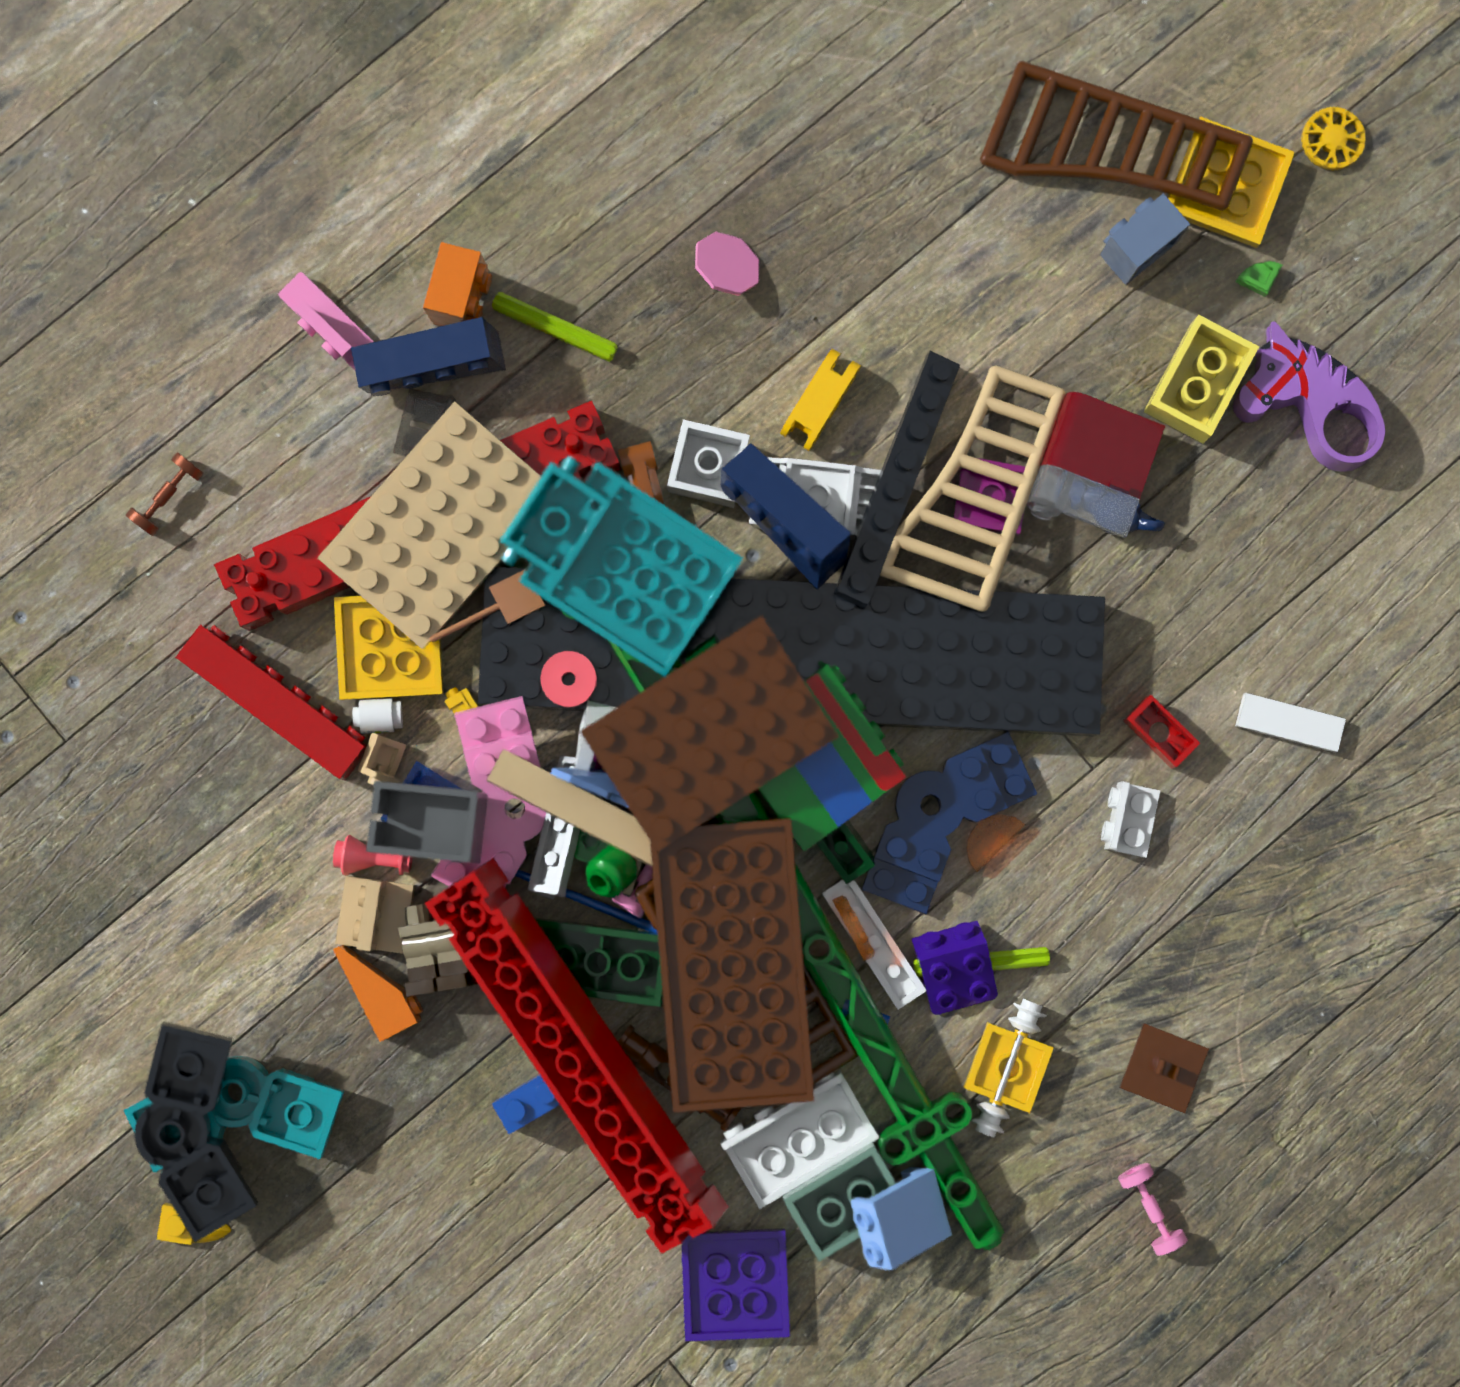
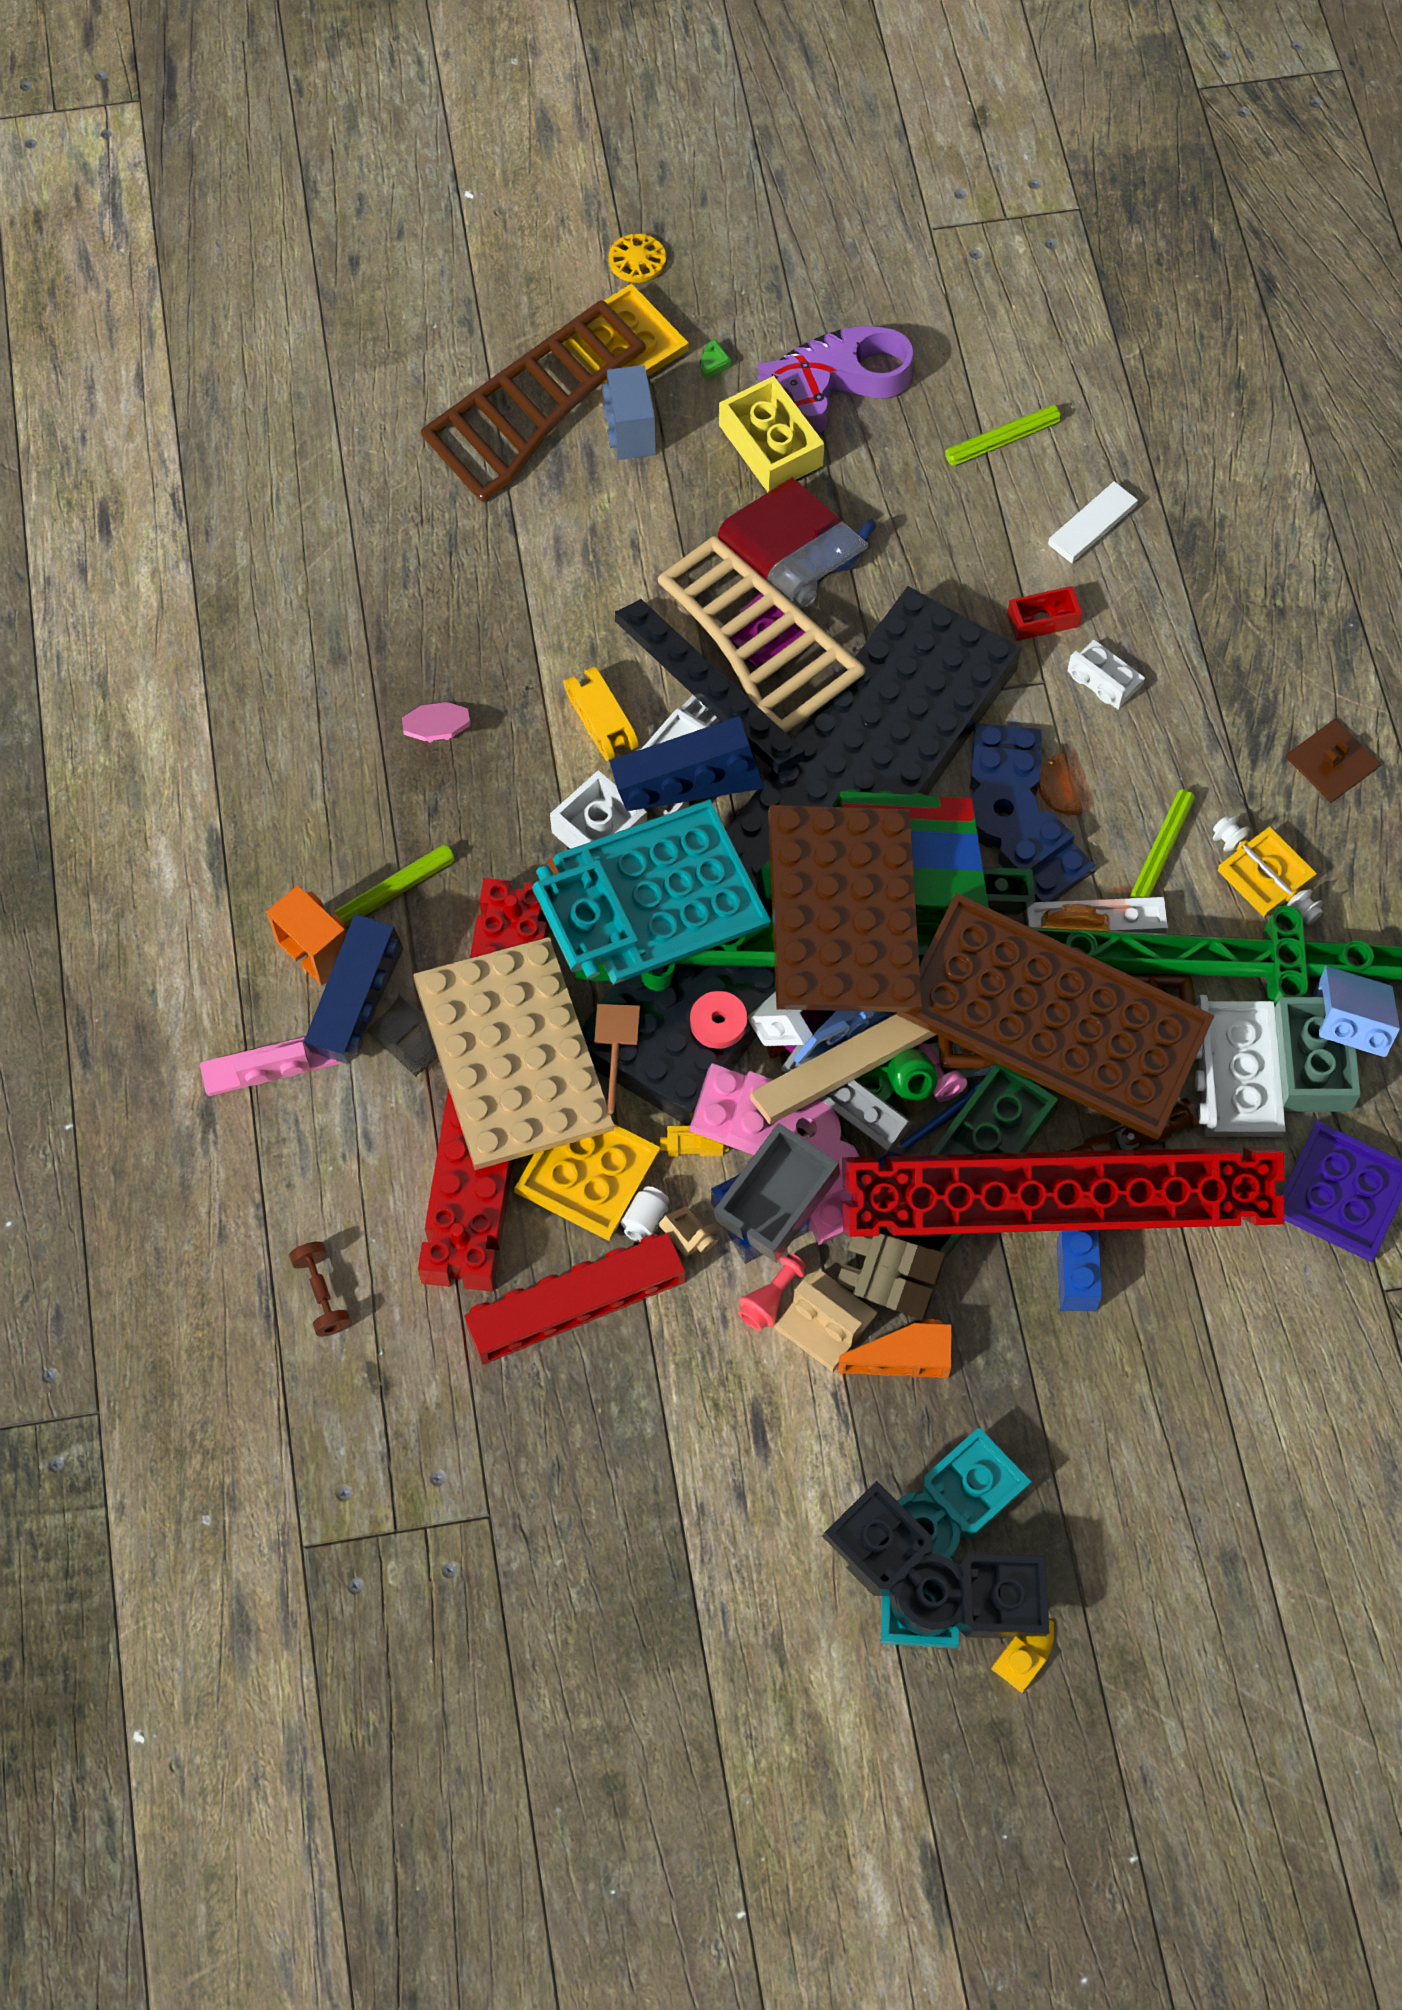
camera: 65 degrees left, 20 degrees down
(955, 967) = (1157, 863): dark purple bracket -> none
(1337, 589) = (1002, 435): none -> lime axle

